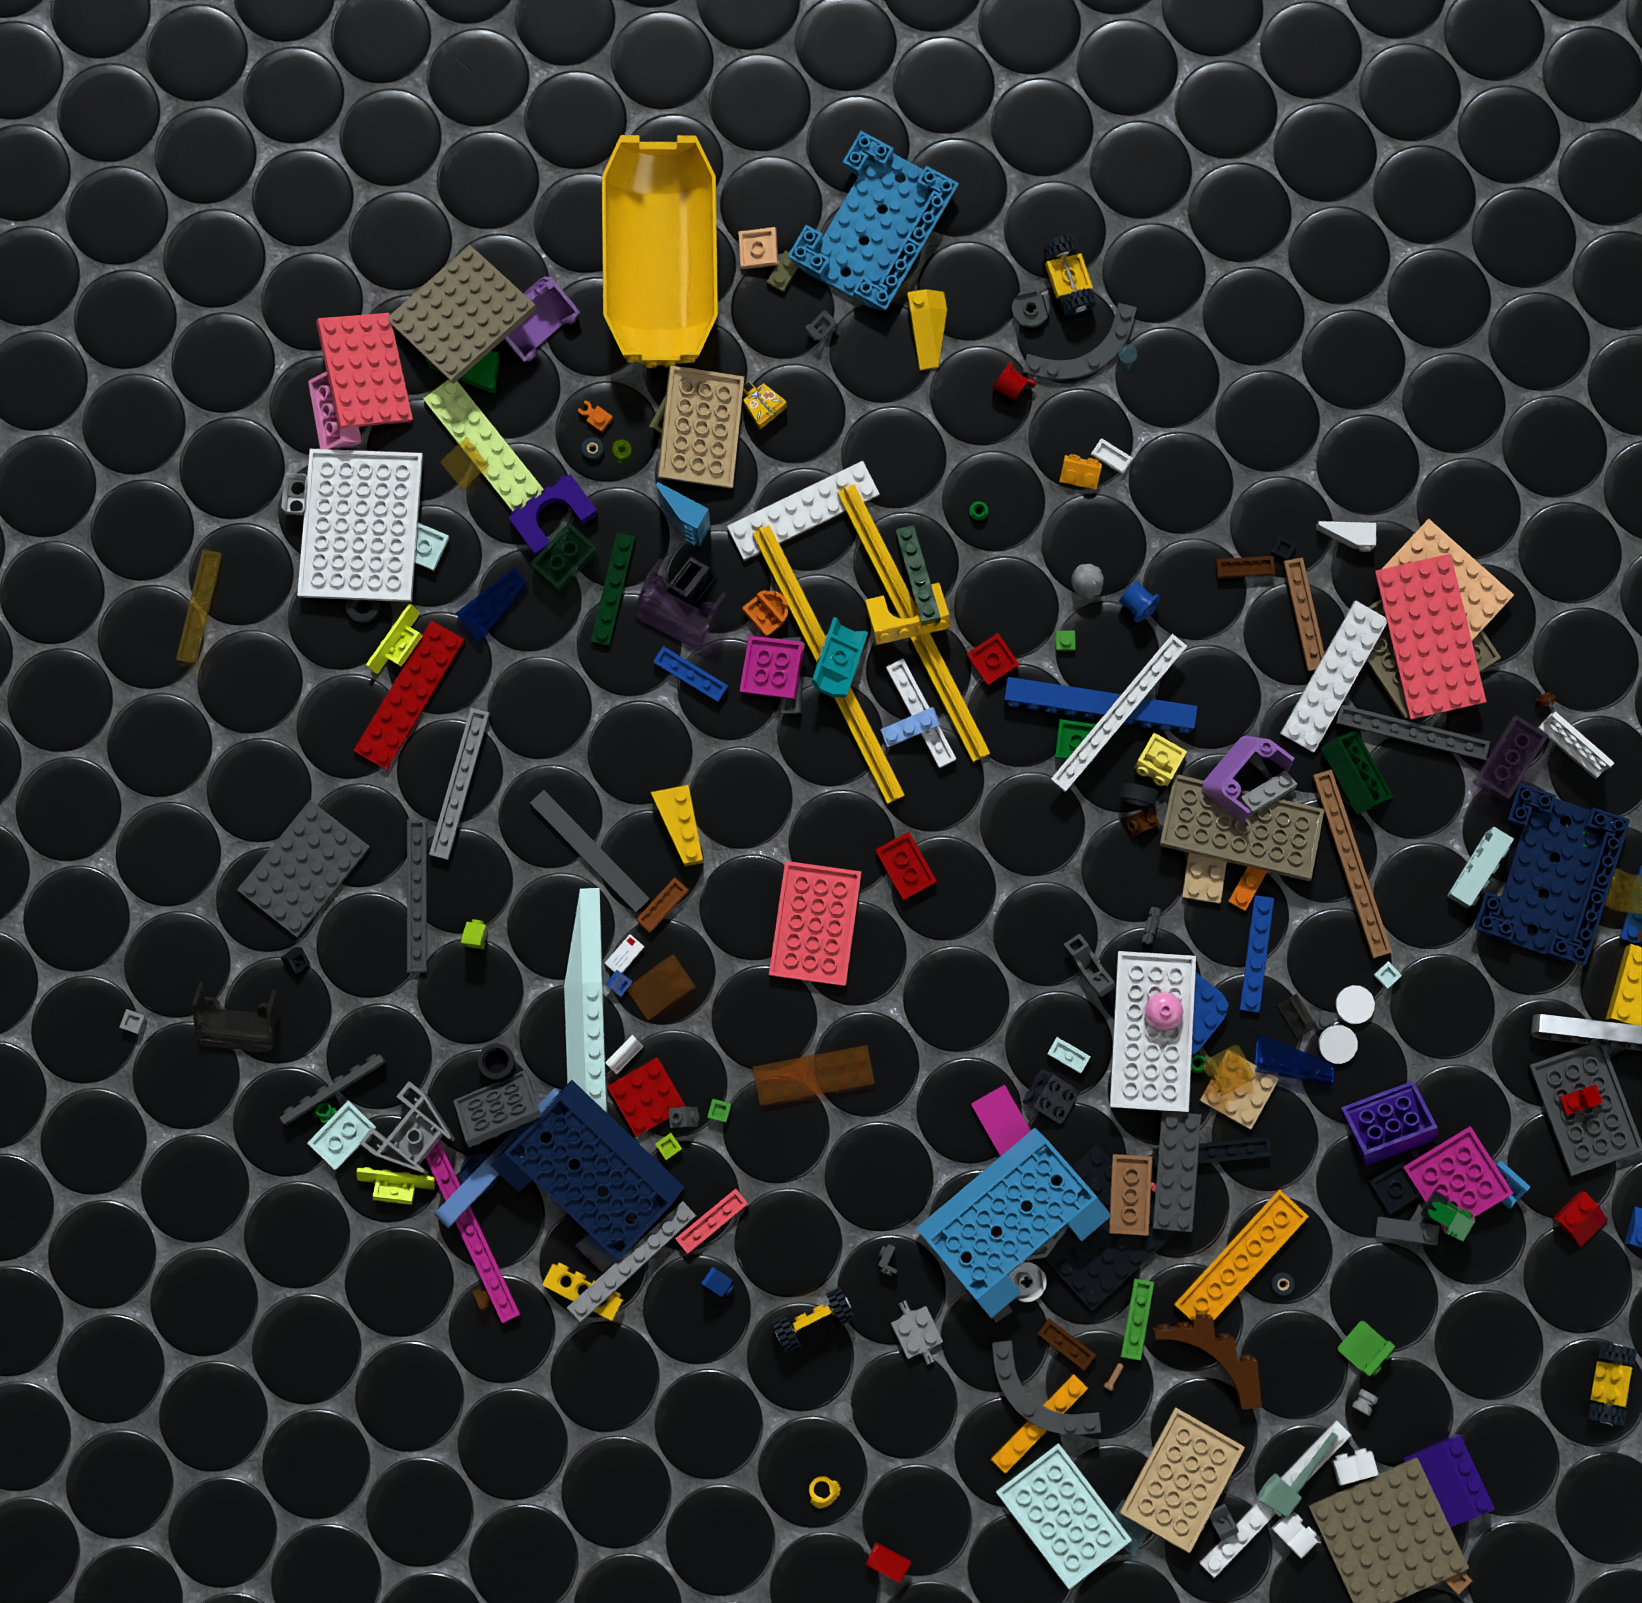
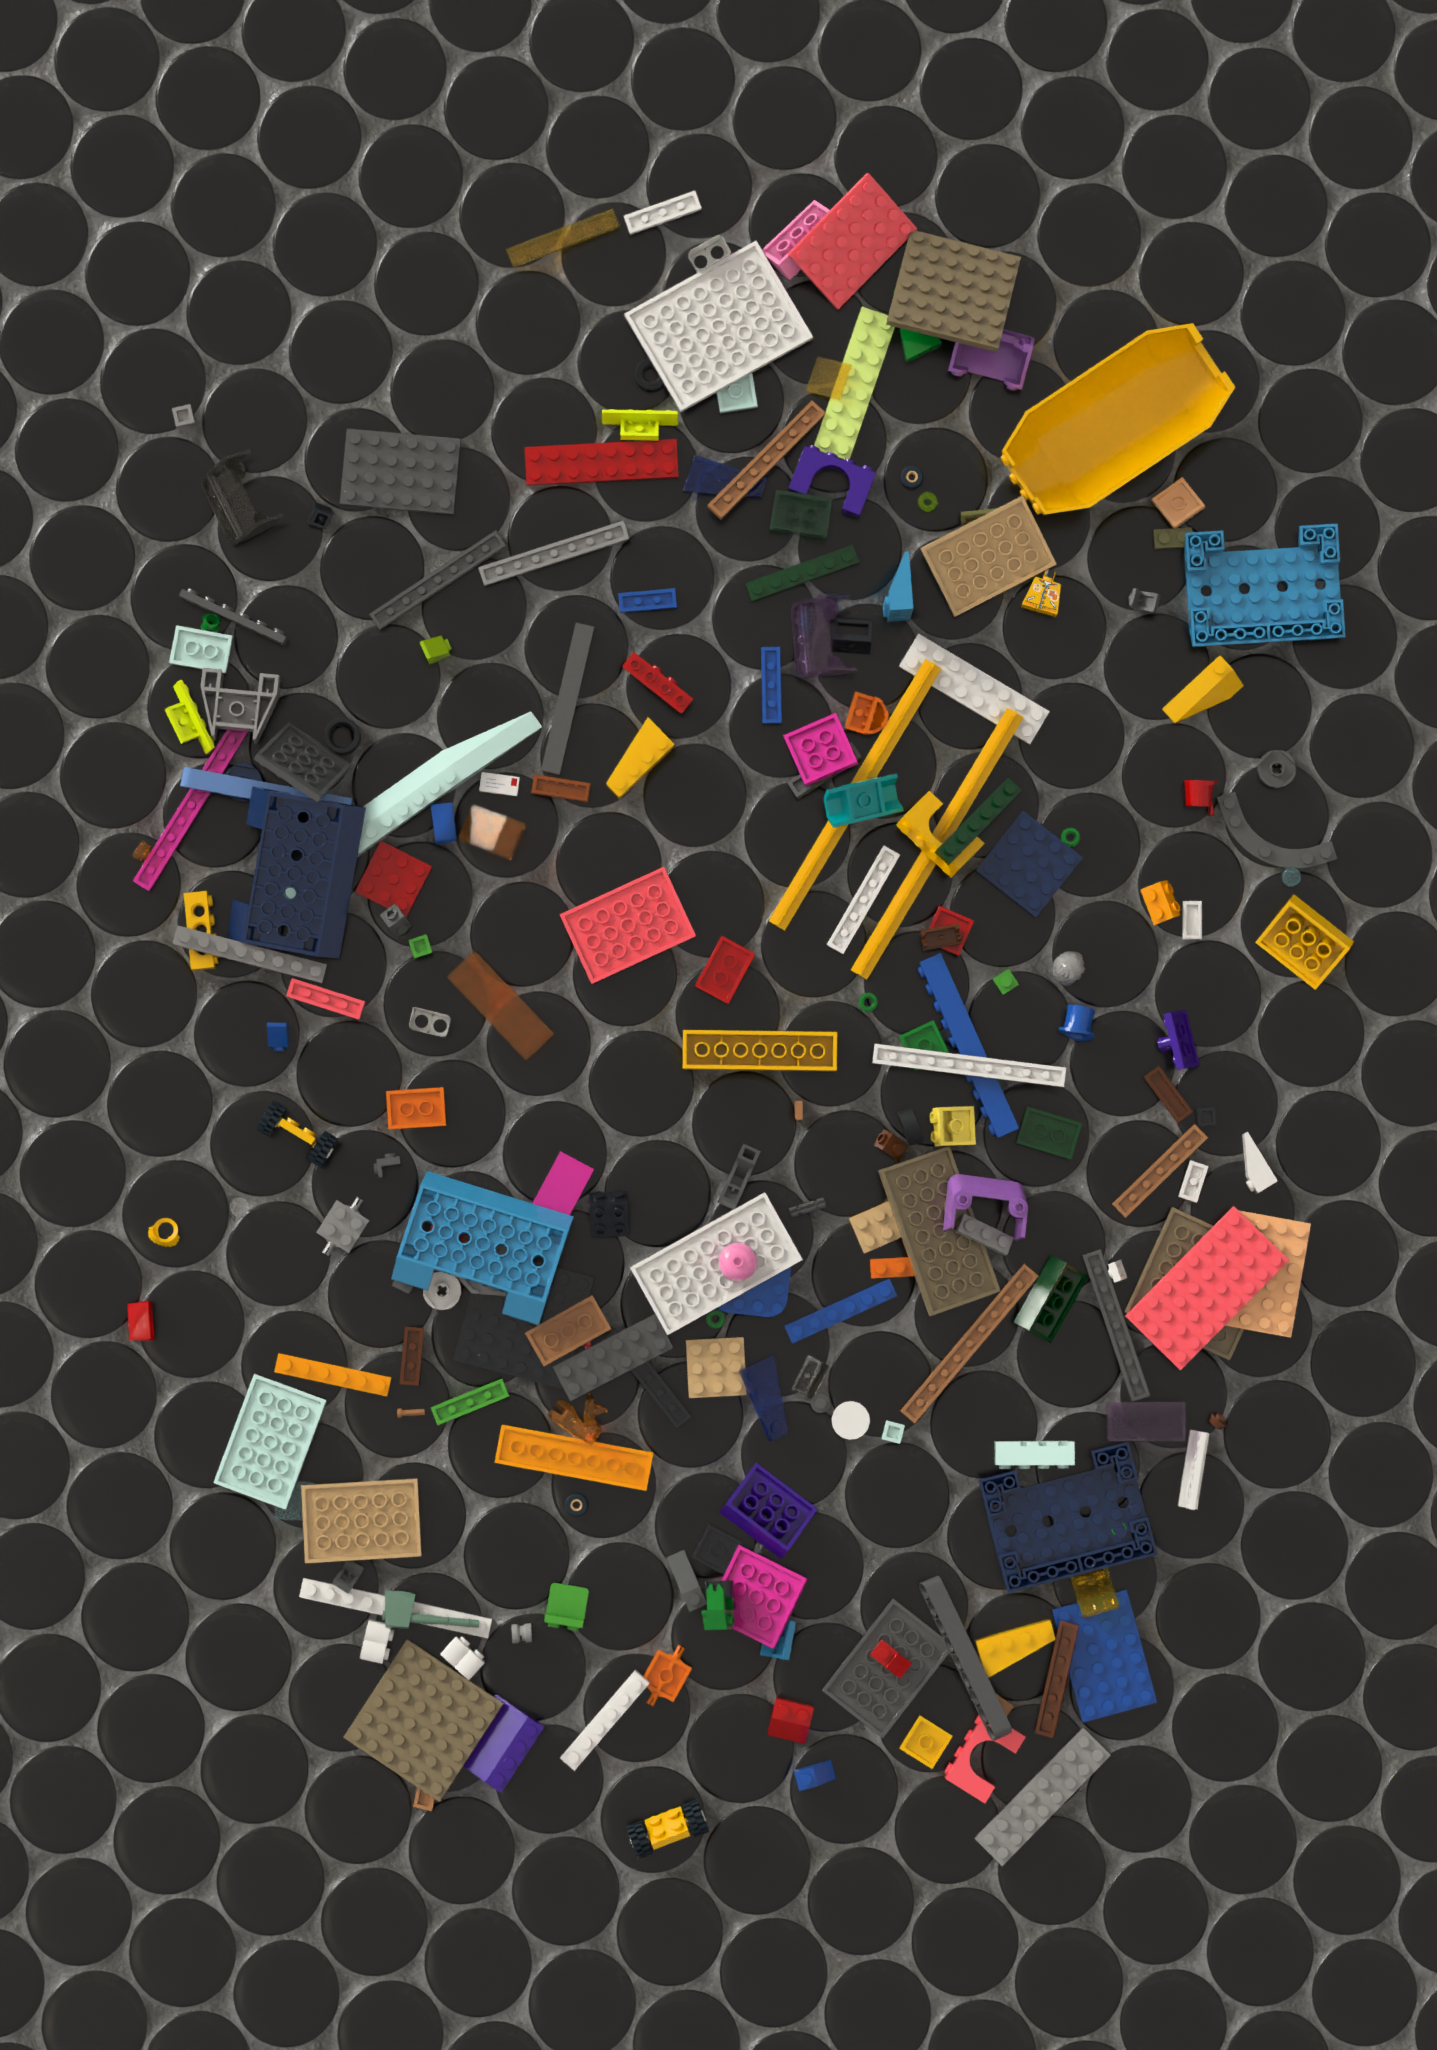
camera: 55 degrees right, 5 degrees up
(234, 510) = (662, 212): none -> white plate
(499, 557) = (766, 460): none -> medium nougat plate
(551, 731) = (647, 600): none -> blue plate
(596, 417) = (941, 464): orange plate -> none
(619, 983) = (472, 794): blue tile -> none
(624, 1054) = (416, 837): white tile -> none
(626, 766) = (654, 679): none -> red bracket
(626, 1022) = (443, 823): none -> blue piece
(668, 1146) = (364, 923): lime plate -> none
(793, 1148) = (431, 1019): none -> white piece
(855, 1203) = (416, 1108): none -> orange plate
(910, 727) = (845, 898): light blue plate -> none
(979, 558) = (1029, 864): none -> dark blue plate
(993, 880) = (759, 1050): none -> yellow brick
(995, 668) = (940, 937): none -> reddish brown hinge
(1009, 758) = (872, 997): none -> green plate
(1030, 1409) = (340, 1355): dark grey plate -> none
(1064, 880) = (798, 1110): none -> medium nougat tile
(1068, 1055) = (653, 1207): light aqua plate -> none
(1069, 275) = (1326, 783): plate -> none
(1189, 376) = (1304, 942): none -> yellow slope
(1201, 1334) = (489, 1486): reddish brown arch -> none
(1206, 529) = (1179, 1040): none -> dark purple plate
(1210, 1243) = (572, 1424): none -> clear orange piece
(1215, 685) = (1049, 1133): none -> dark green plate
(1228, 1070) = (724, 1347): clear yellow bracket -> none
(1331, 593) = (1193, 1181): none -> white plate
(1334, 676) = (1120, 1228): white plate -> none
(1338, 1044) = (807, 1426): white tile -> none
(1367, 703) = (1117, 1271): none -> white plate
(1477, 1301) = (666, 1675): none -> orange plate
(1484, 1378) = (604, 1720): none -> white plate

